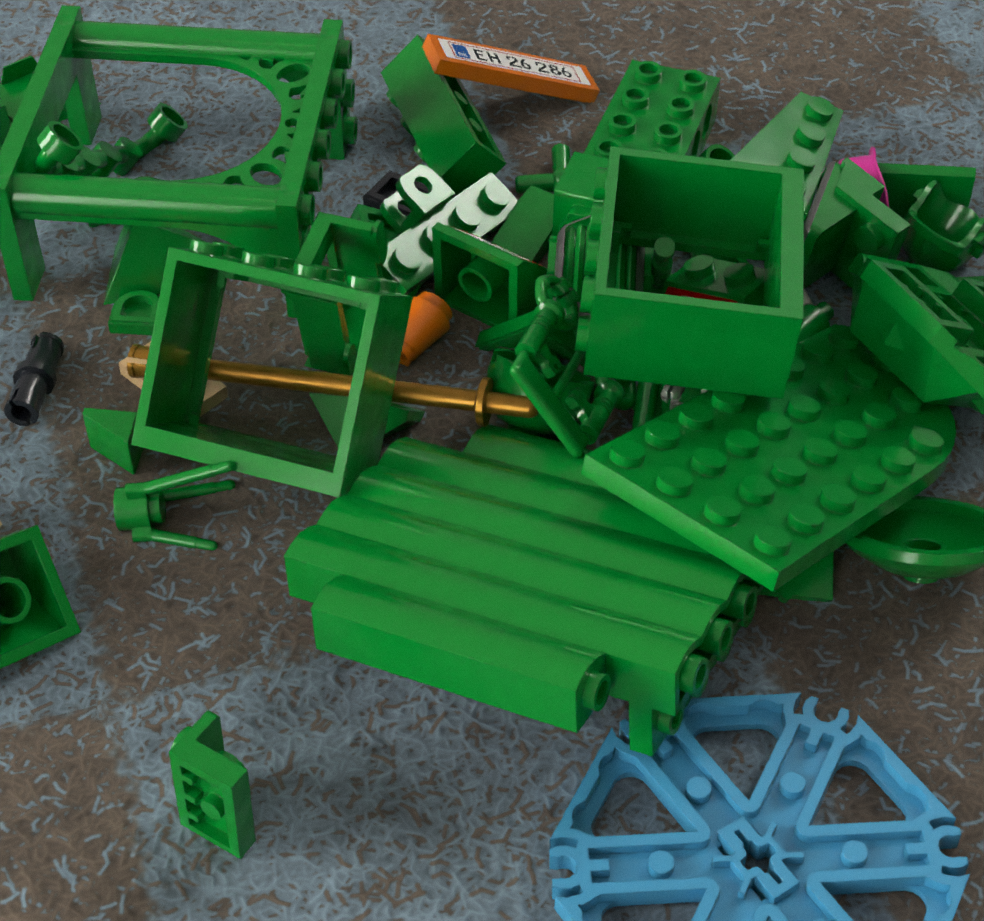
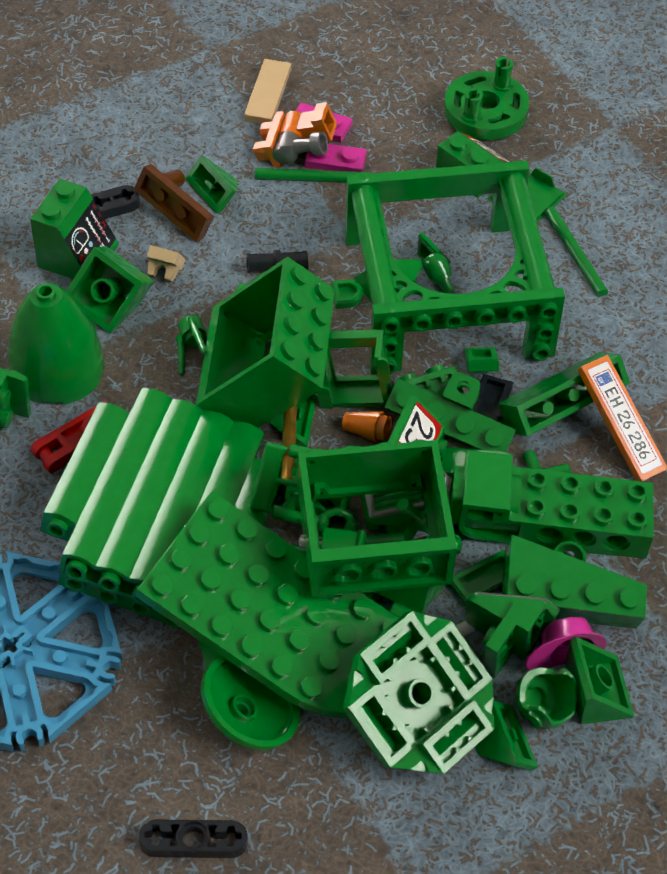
camera: 75 degrees right, 5 degrees up
(66, 154) = (393, 195): green bar -> none
(112, 687) = (55, 346): none -> green cylinder
(156, 73) = (576, 252): none -> green bar
(312, 704) = (65, 438): none -> red plate
(340, 191) = (481, 359): none -> green tile

